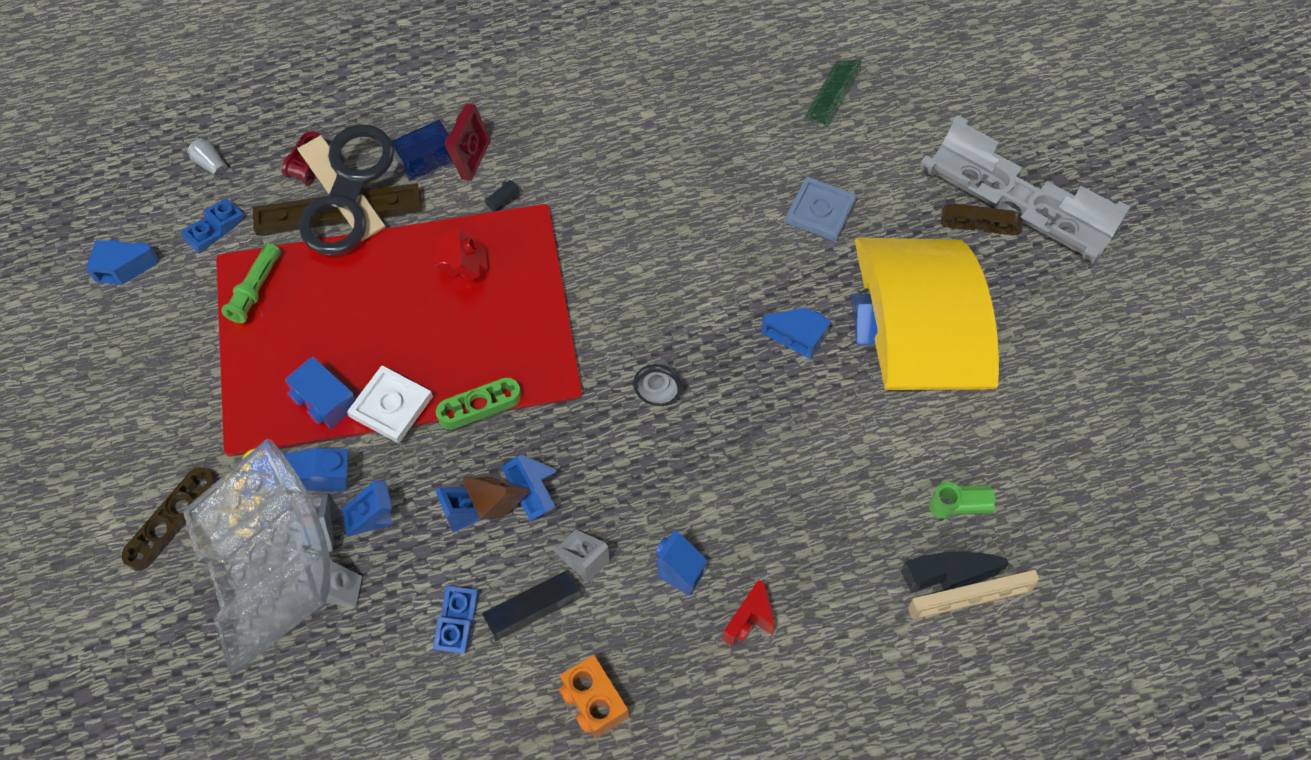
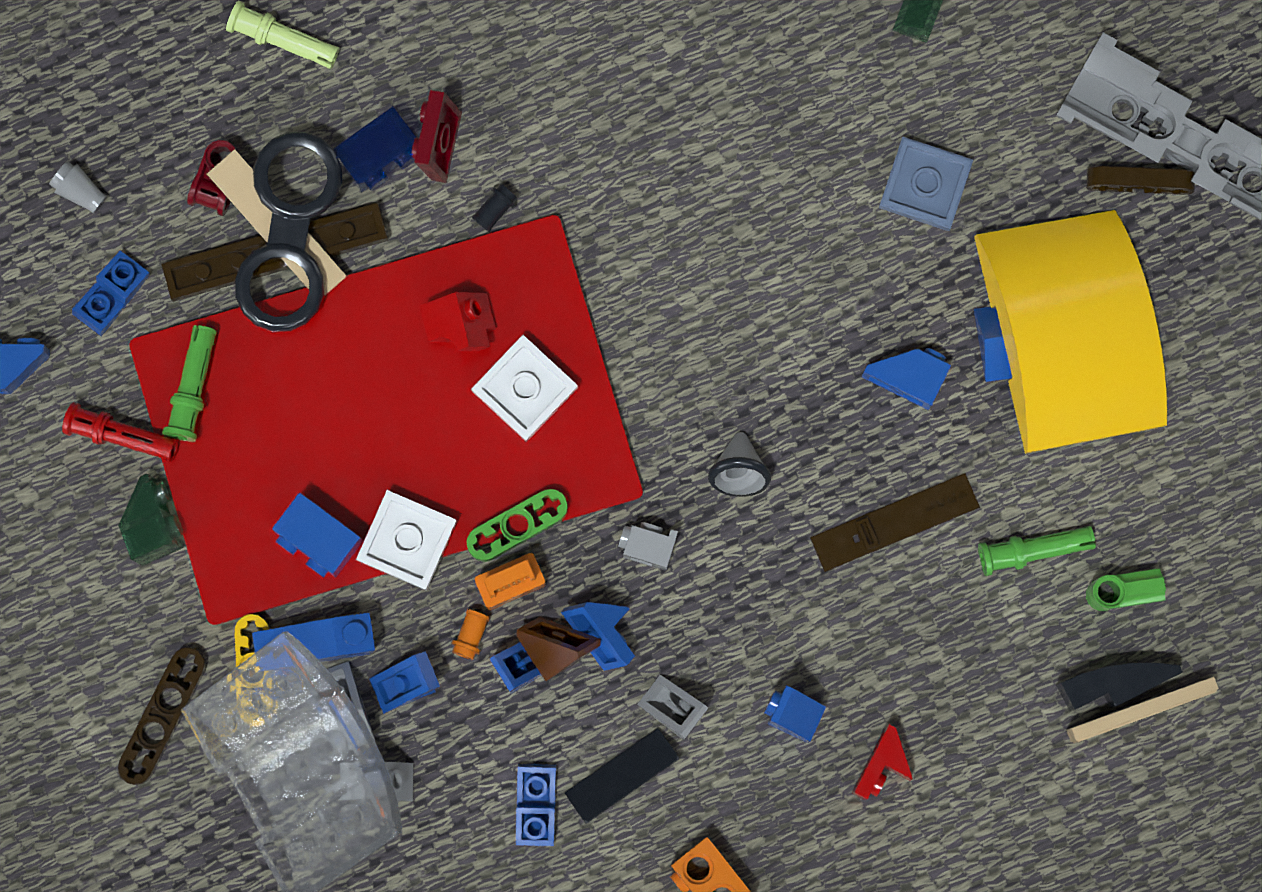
camera: 10 degrees left, 20 degrees up
(181, 308) = (101, 432): none -> red pin
(195, 375) = (147, 522): none -> clear green slope
(363, 77) = (267, 30): none -> yellowish green pin
(426, 484) = (470, 635): none -> orange pin
(465, 442) = (510, 581): none -> orange piece
(501, 308) = (524, 388): none -> white plate
(580, 429) = (648, 545): none -> light grey brick
(777, 436) = (895, 522): none -> dark brown piece
(875, 464) = (1019, 552): none -> bright green pin

